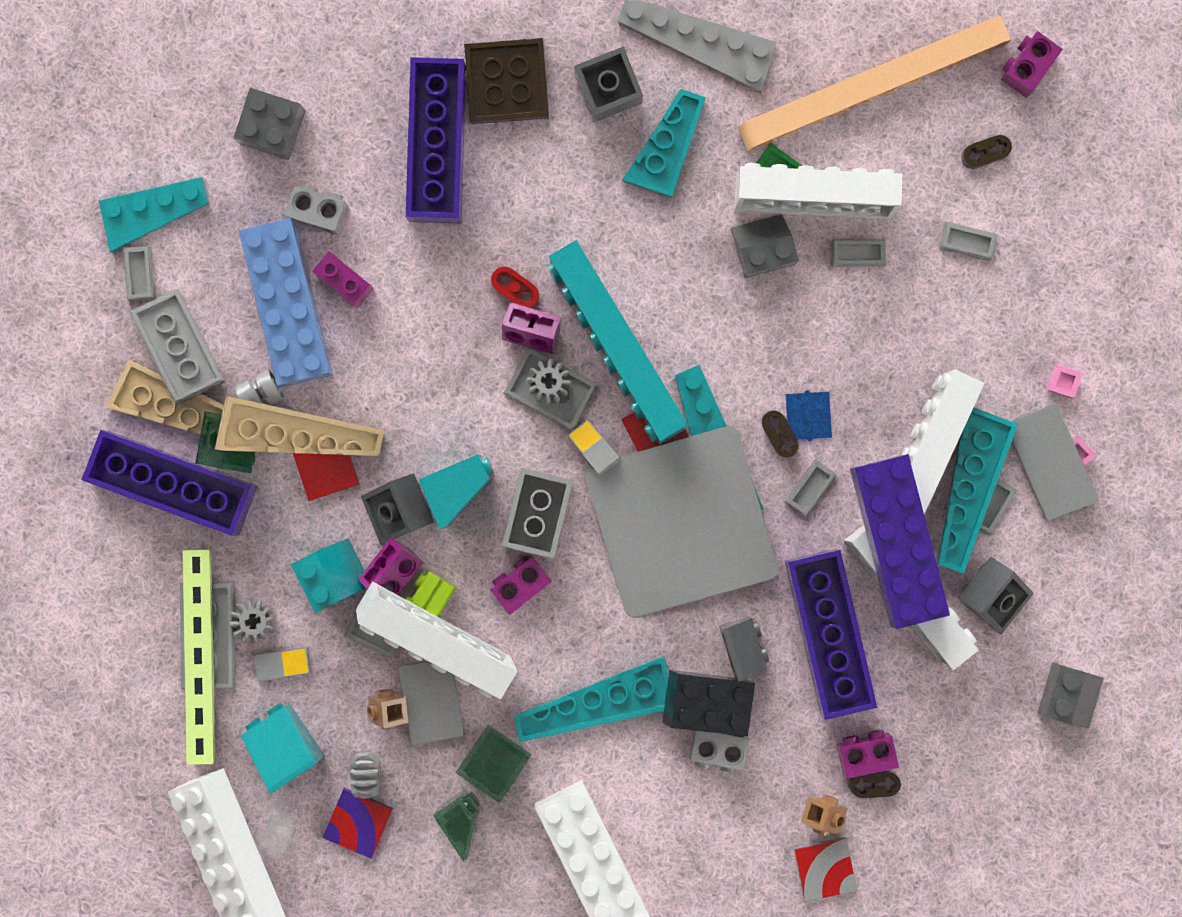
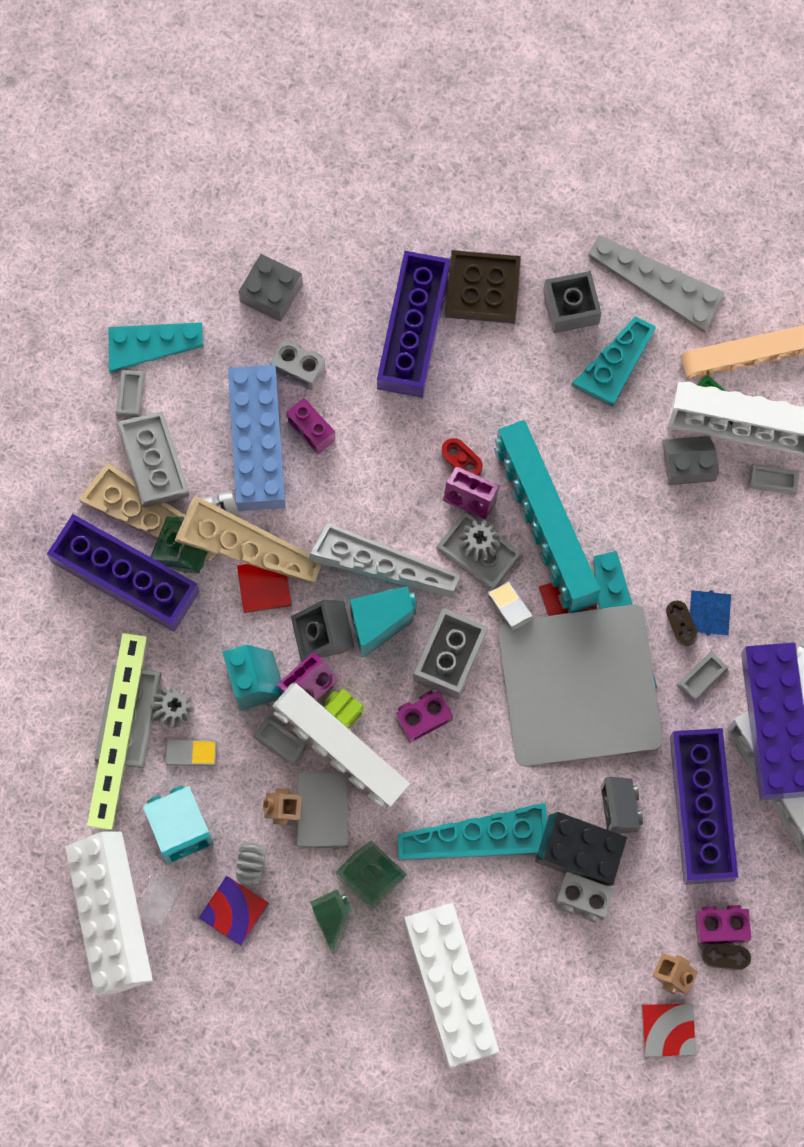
camera: 10 degrees right, 15 degrees down
(430, 419) = (364, 556): none -> light grey wing

